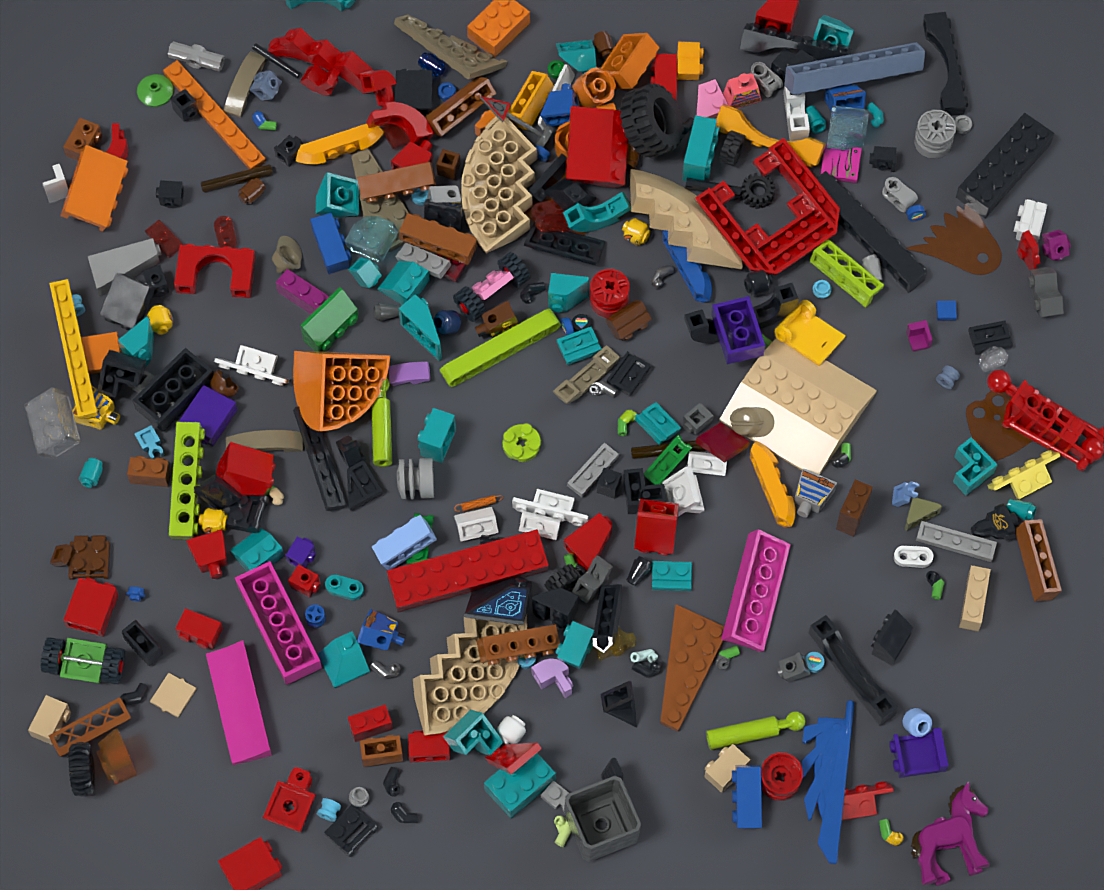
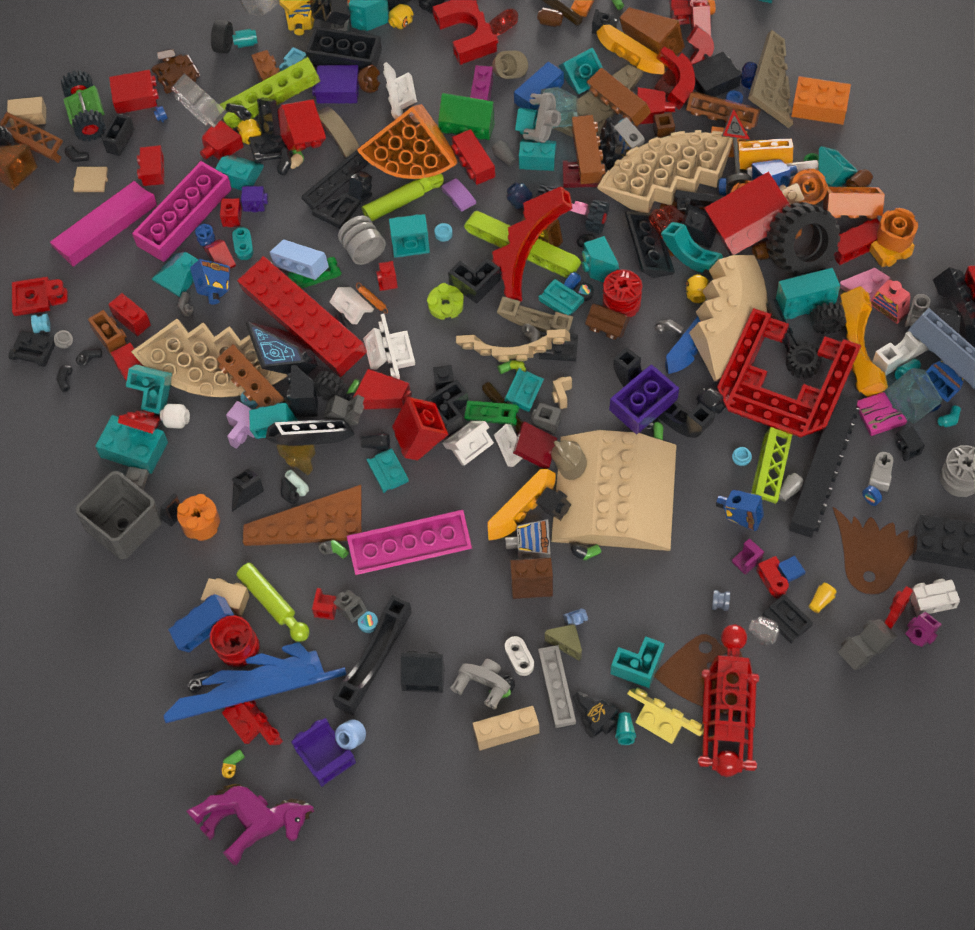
camera: 65 degrees right, 5 degrees down
(80, 491) = (222, 36): none -> black tyre
(160, 547) = (198, 101): none -> clear brick
(197, 515) = (239, 110): none -> black arm
(276, 505) = (285, 163): none -> black arm
(330, 116) = (652, 30): none -> dark orange slope
(345, 613) = (219, 253): none -> slope
(375, 339) = (473, 157): none -> red brick
(389, 252) = (546, 118): none -> light grey connector
(417, 320) = (504, 173): teal slope -> none
(434, 264) = (564, 154): light grey plate -> none
(442, 404) = (443, 232): none -> medium azure tile
(466, 477) = (386, 276): none -> red brick
(505, 340) = (522, 236): none -> red arch
(521, 407) = (474, 282): none -> black brick
(592, 469) = (460, 364): light grey plate -> none
(599, 101) = (792, 193): none -> tan bracket
(622, 405) = (519, 353): none -> tan piece
(634, 744) = (198, 517): none -> orange brick
(678, 397) = (559, 388): none -> tan bracket
(685, 45) = (897, 230): none -> orange brick
(779, 689) = (324, 605): none -> red panel
(788, 455) = (554, 503): none -> black brick
(794, 827) = (196, 681): none -> black arm
(808, 333) = (688, 465): yellow door -> none
(875, 314) = (742, 508): none -> blue torso
(919, 589) = (484, 674): none -> light grey connector
(948, 327) = (772, 578): none -> red leg
(985, 301) = (824, 595): none -> yellow cone
(1038, 560) = (575, 766): dark orange brick -> none

